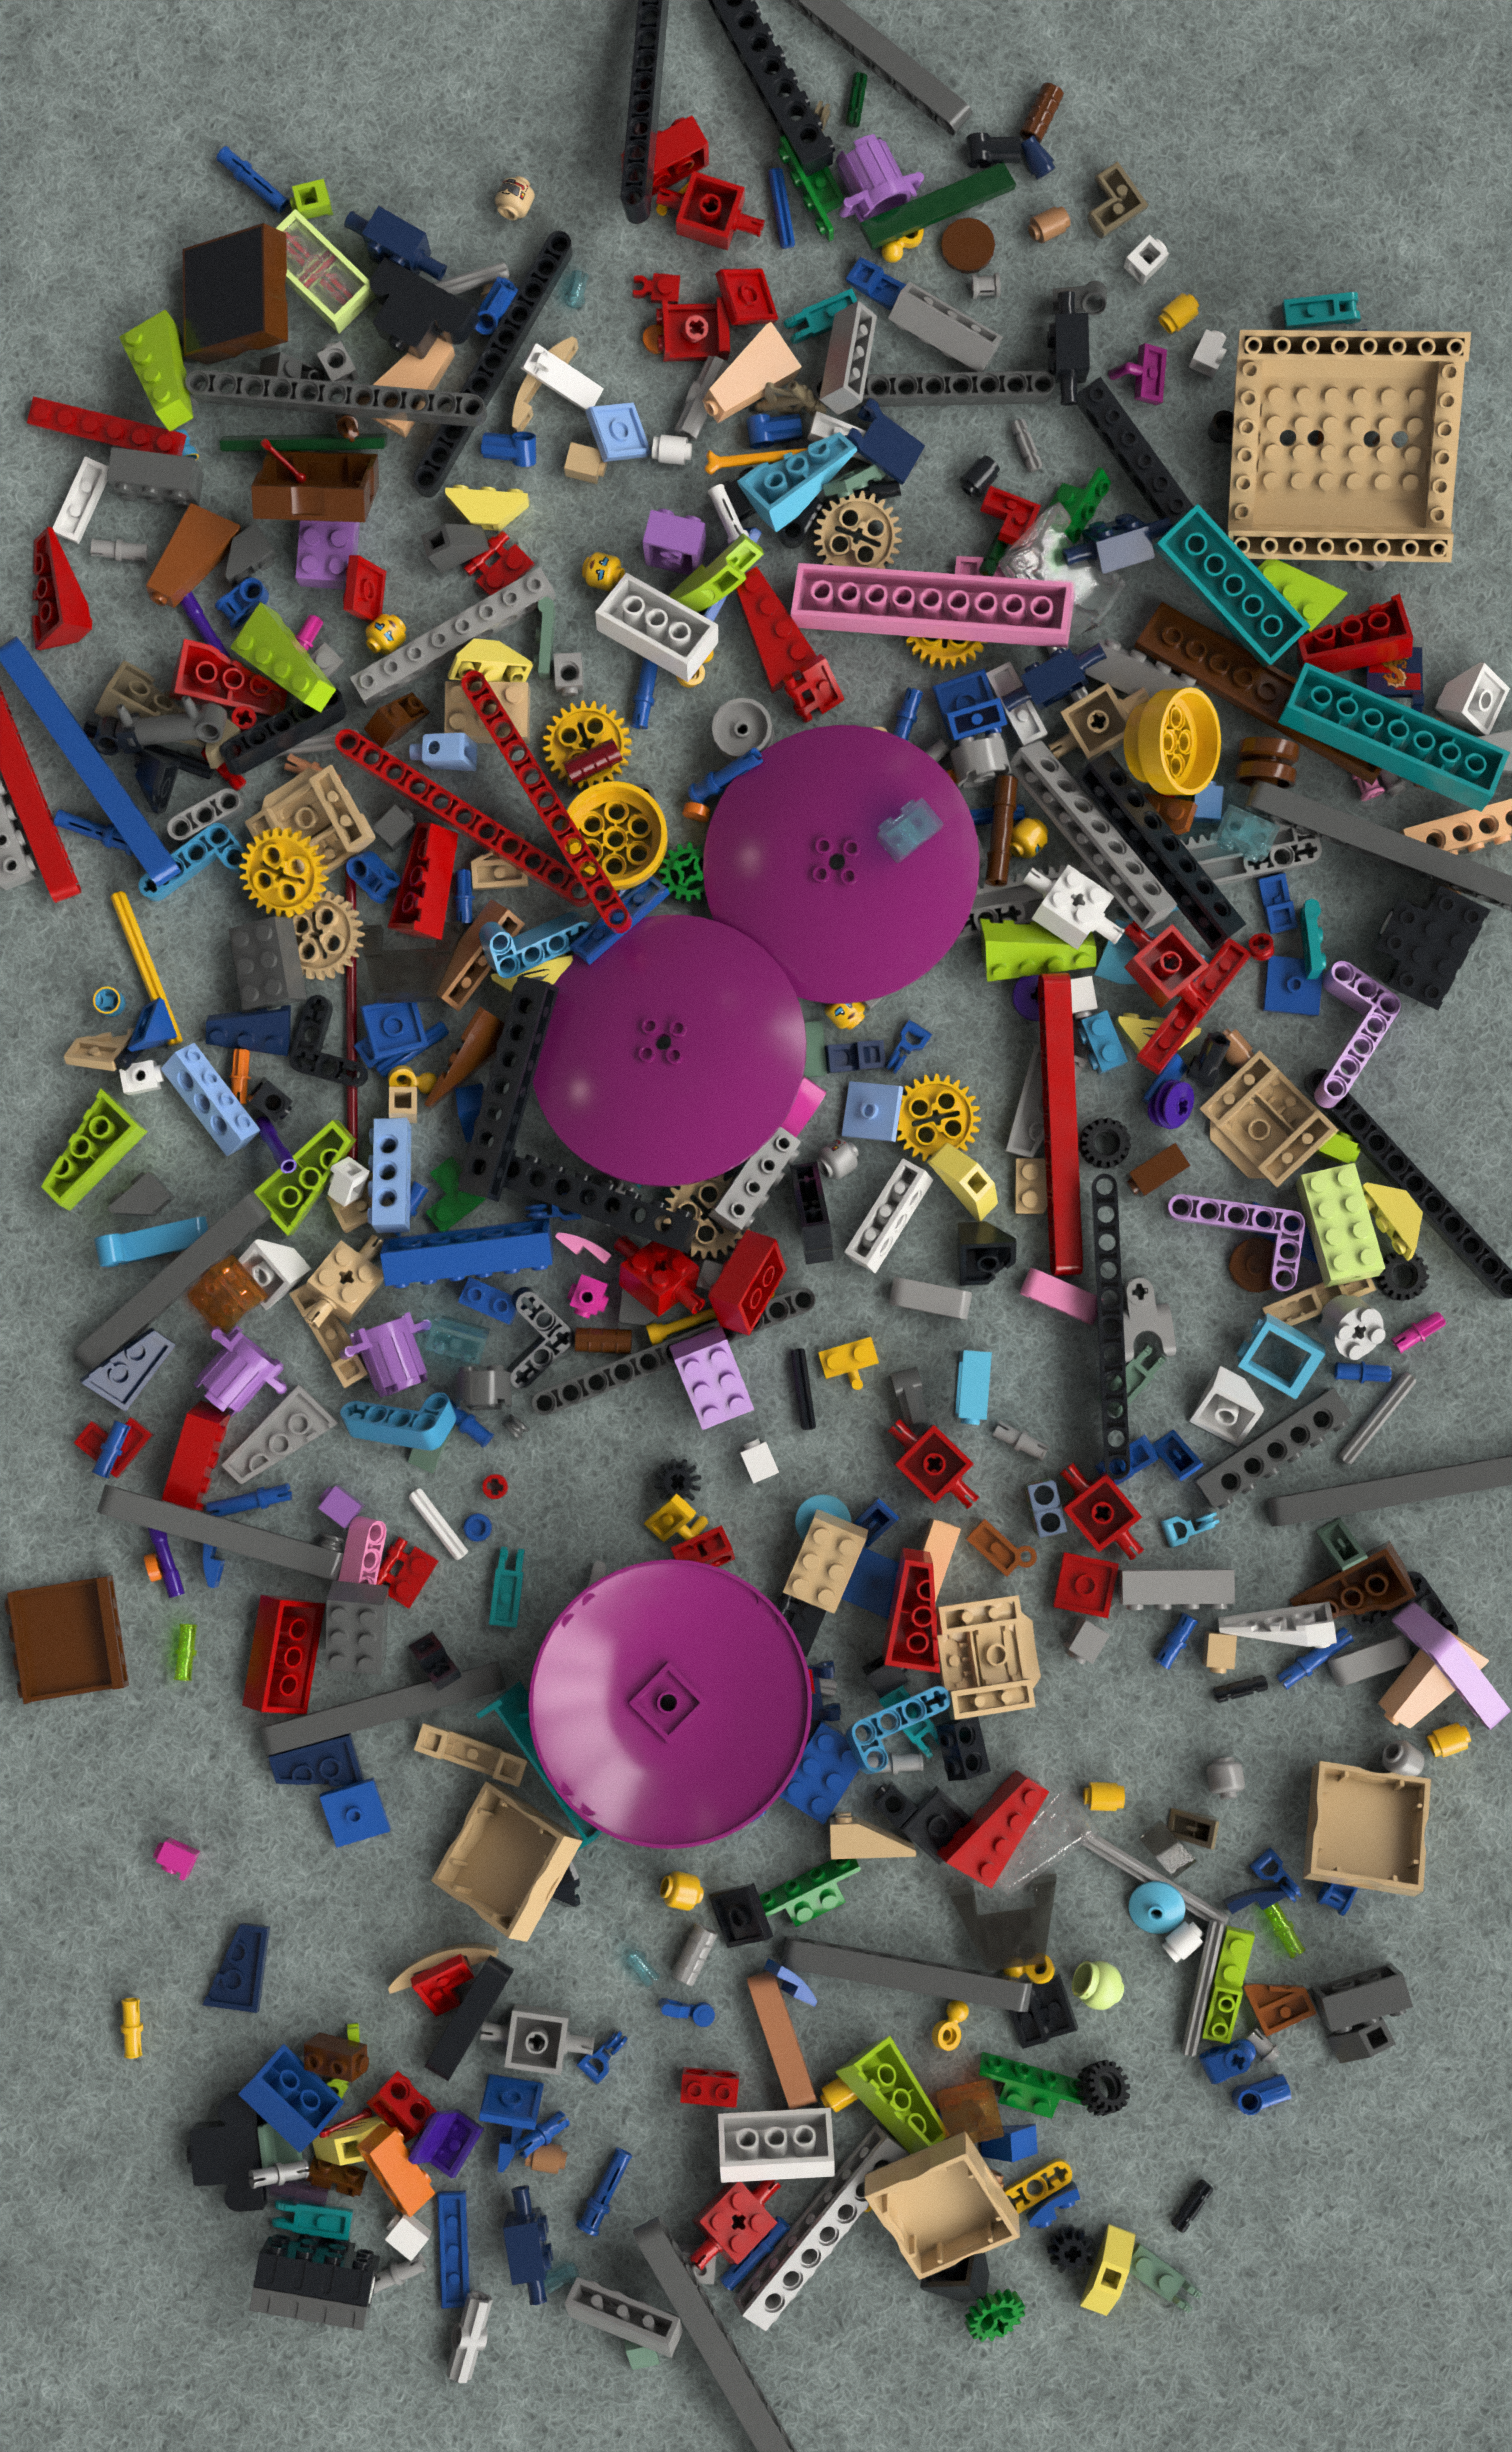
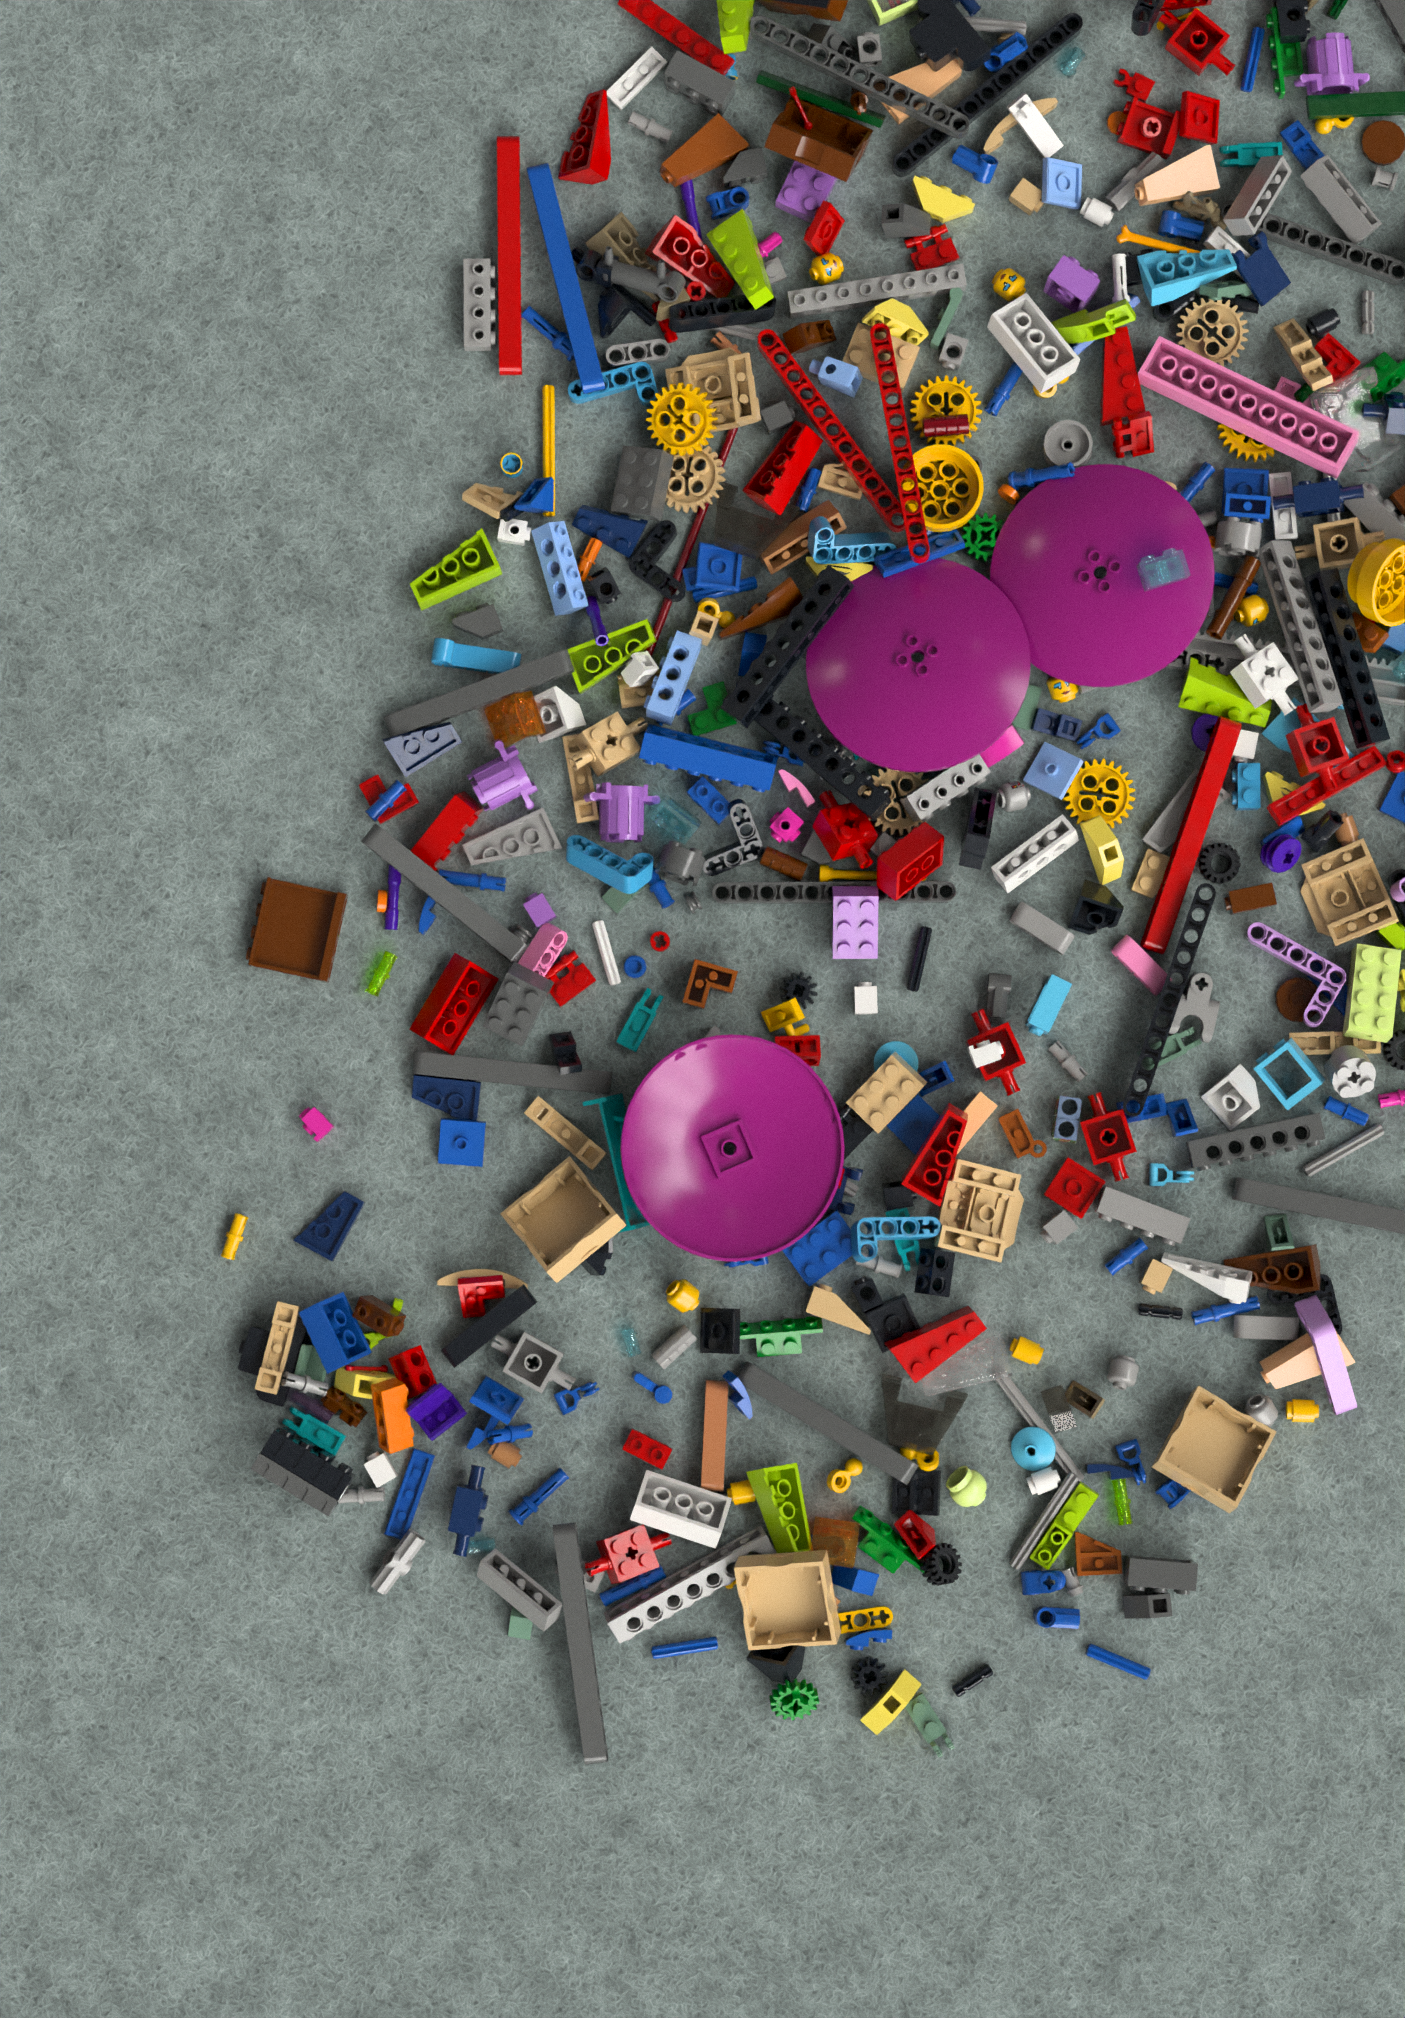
camera: 25 degrees right, 0 degrees up
(230, 2146) = (277, 1348): none -> tan slope
(373, 877) = (747, 449): blue piece -> none
(563, 1509) = (704, 977): none -> dark orange brick
(843, 2301) = (684, 1647): none -> blue axle
(848, 1360) = (962, 950): yellow plate -> none
(923, 1472) = (985, 1053): none -> white brick
(971, 520) = (1303, 354): none -> tan slope
(1062, 2063) = (916, 1533): none -> red slope
(1351, 2116) = (1118, 1661): none -> blue axle

